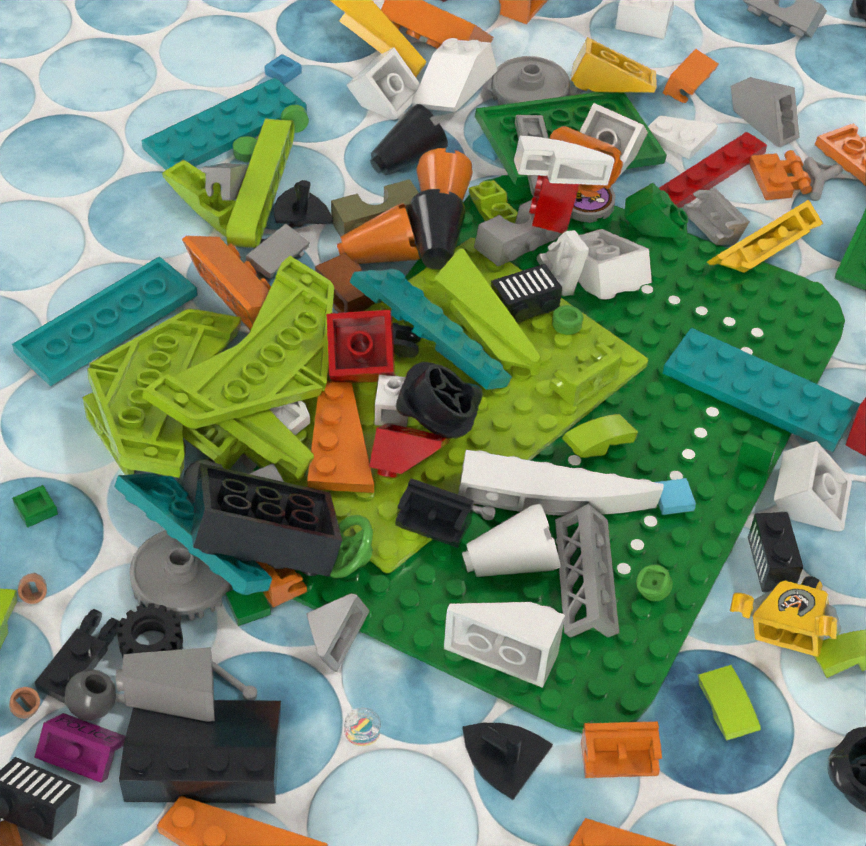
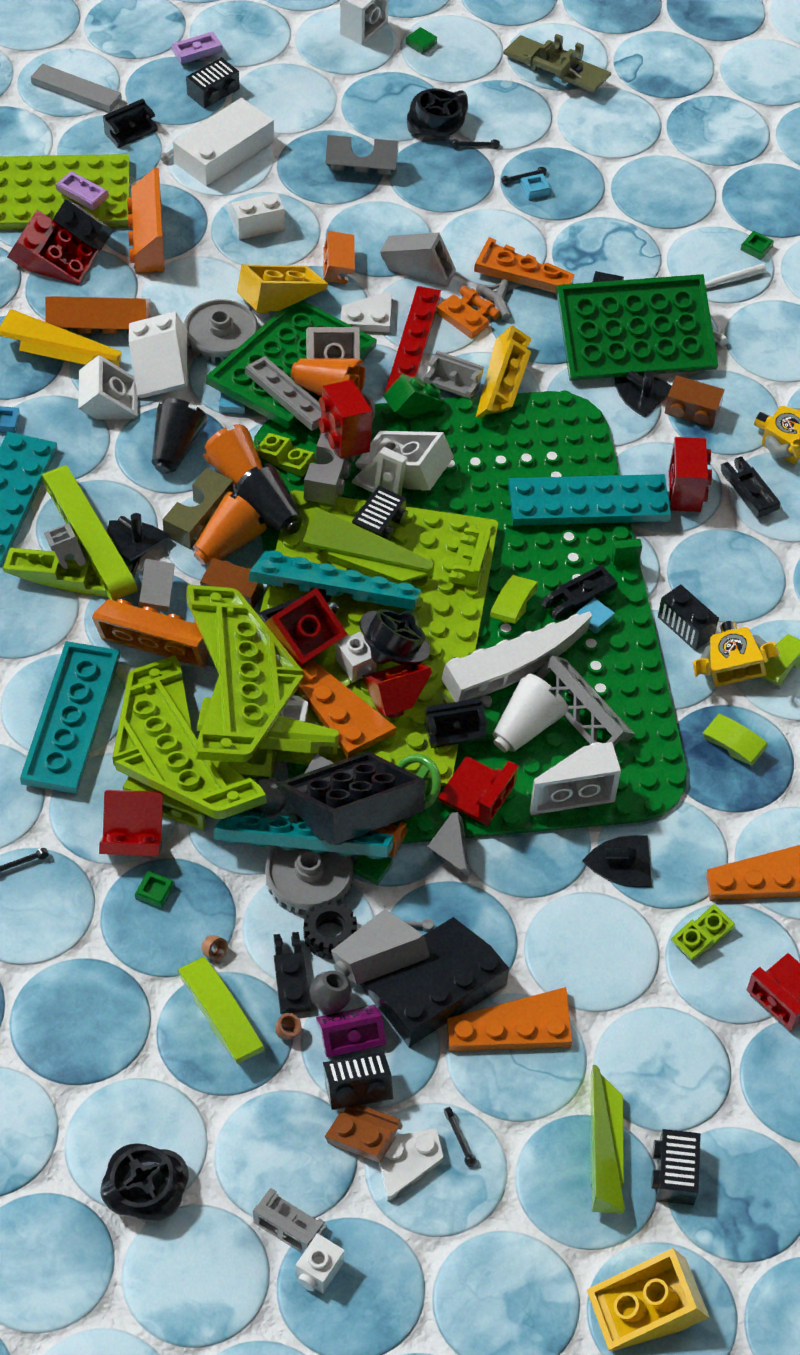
camera: 35 degrees left, 5 degrees up
(62, 435) = (132, 823): none -> red bracket
(244, 148) = (42, 509): bright green tile -> none
(298, 115) = (59, 458): bright green tile -> none
(362, 726) = (520, 900): clear tile -> none
(408, 591) = (479, 789): none -> red bracket
(562, 161) = (349, 397): white slope -> none
(567, 320) = (420, 521): bright green tile -> none
(621, 749) = (694, 812): orange hinge -> none
(654, 582) = (631, 685): bright green tile -> none
(676, 463) = (580, 591): none -> black hinge
(813, 487) = (676, 556): white slope -> none

